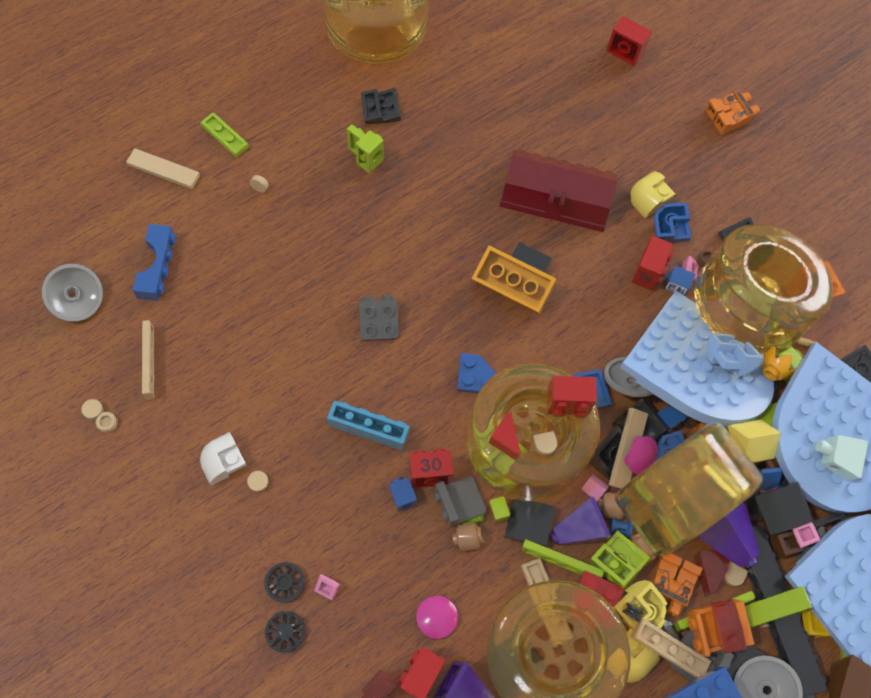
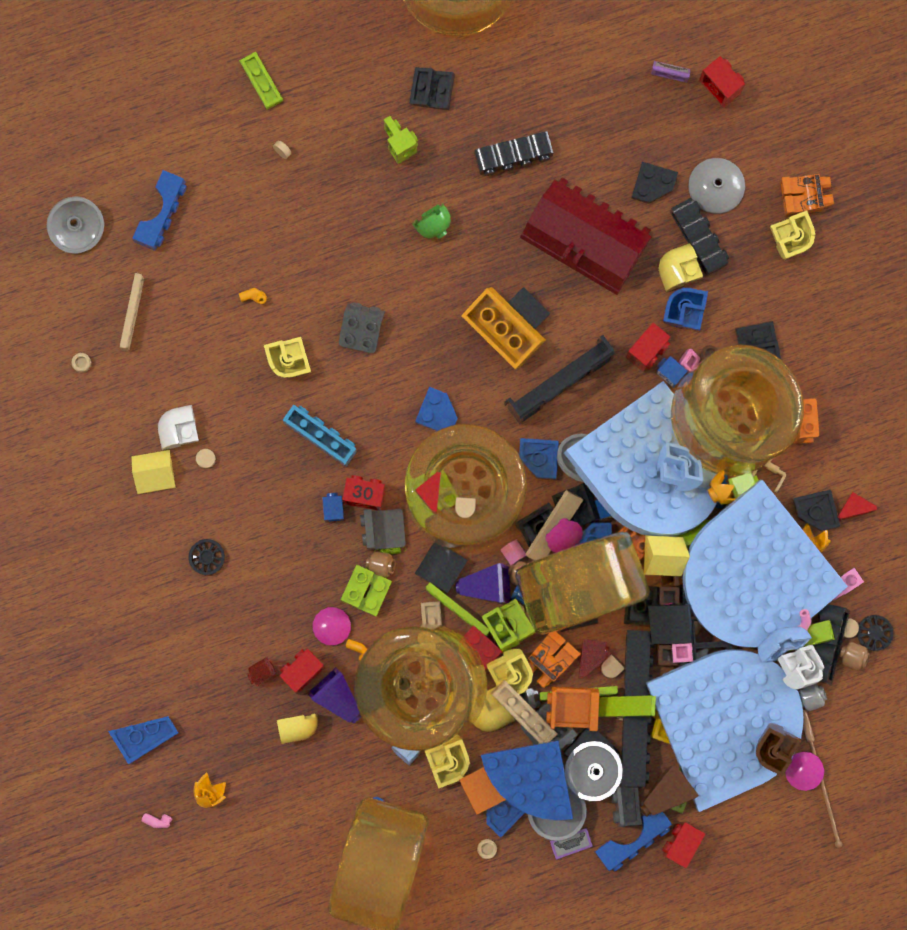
camera: 20 degrees right, 15 degrees up
(92, 409) = (70, 346): tan tile -> none
(163, 168) = (190, 105): tan tile -> none
(206, 510) = (153, 472): none -> light yellow slope
(265, 314) = (254, 294): none -> light orange arm
(285, 631) = (196, 600): black wheel -> none
(315, 360) = (287, 358): none -> light yellow brick
(327, 587) = (243, 571): bright pink slope -> none
(419, 209) = (433, 222): none -> bright green cylinder
(452, 568) = (357, 587): none -> lime brick
(471, 137) = (514, 152): none -> black brick
(474, 631) = (356, 646): none -> light orange arm
(500, 509) = (416, 548): lime slope -> none
(557, 347) = (561, 381): none -> black piece
(571, 396) = (499, 473): red brick -> none
(581, 48) = (670, 71): none -> medium lavender slope
(599, 134) = (653, 183): none -> black plate
(632, 612) = (498, 673): black bush -> none
(652, 158) = (697, 233): none -> black brick
(653, 131) = (710, 196): none -> light grey dish
(728, 626) = (578, 709): clear red slope -> none
(734, 537) = (616, 634): dark purple slope -> none
(738, 142) = (794, 235): none -> light yellow brick
(771, 478) = (669, 593): blue slope -> none
(843, 455) = (740, 593): light aqua torso -> none

